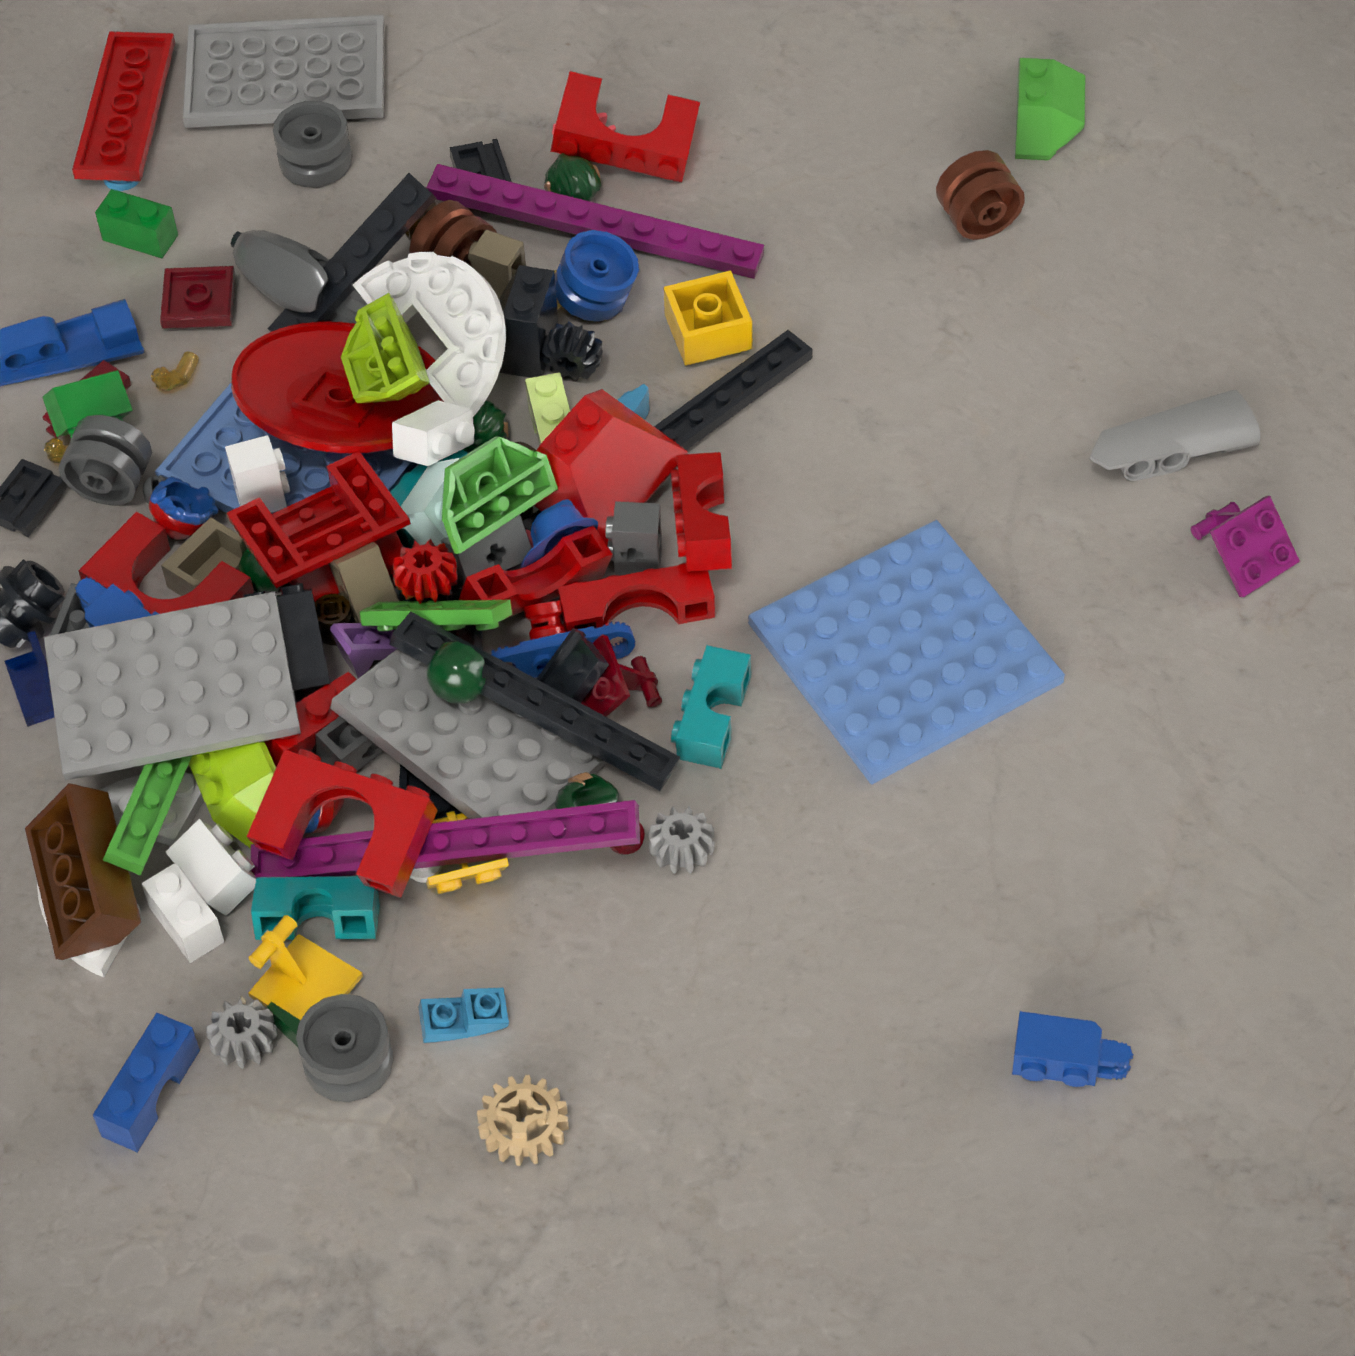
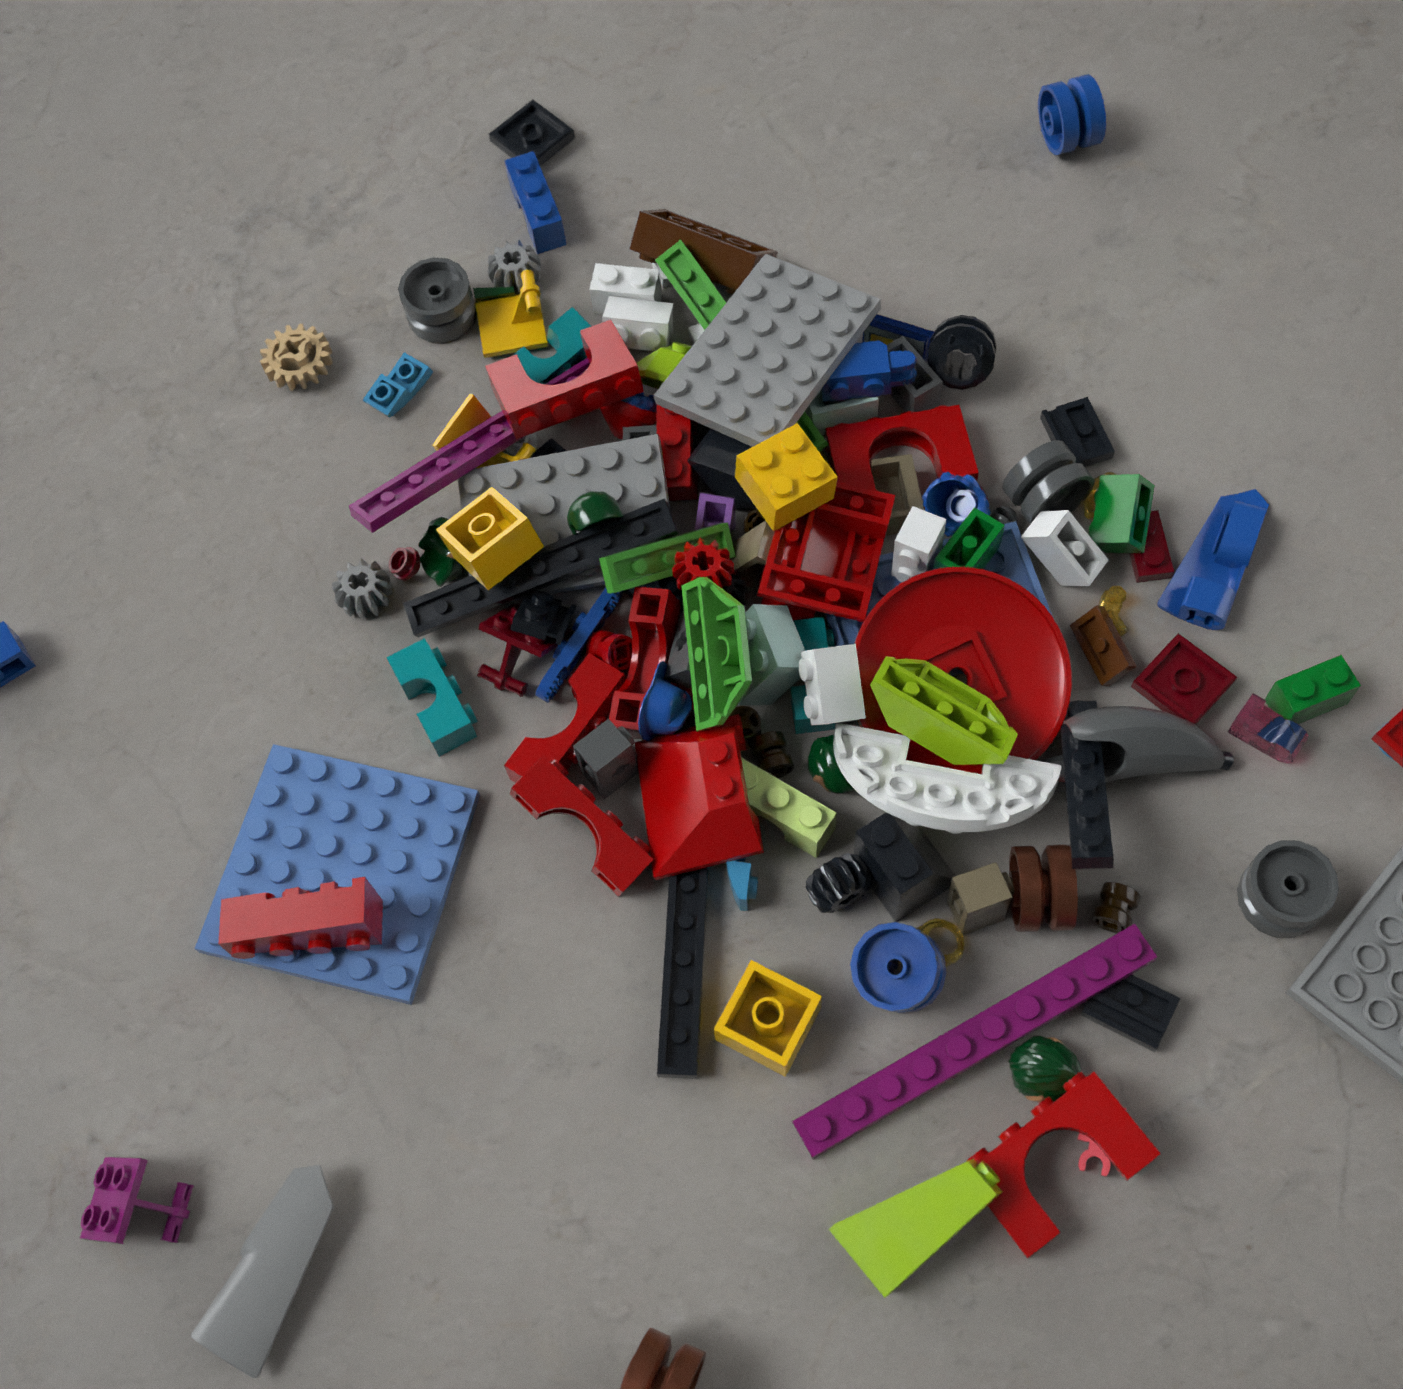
camera: 140 degrees right, 10 degrees up
(58, 1175) = (532, 130): none -> black plate
(158, 412) = (1064, 548): none -> white brick
(192, 229) = (1268, 731): none -> clear pink leg
(207, 450) = (972, 542): none -> green brick
(215, 354) = (1102, 646): none -> reddish brown plate
(294, 558) = (785, 476): none -> yellow brick
(552, 725) = (490, 538): none -> yellow brick
(741, 158) = (910, 1227): none -> lime slope
(964, 595) = (302, 920): none -> wedge

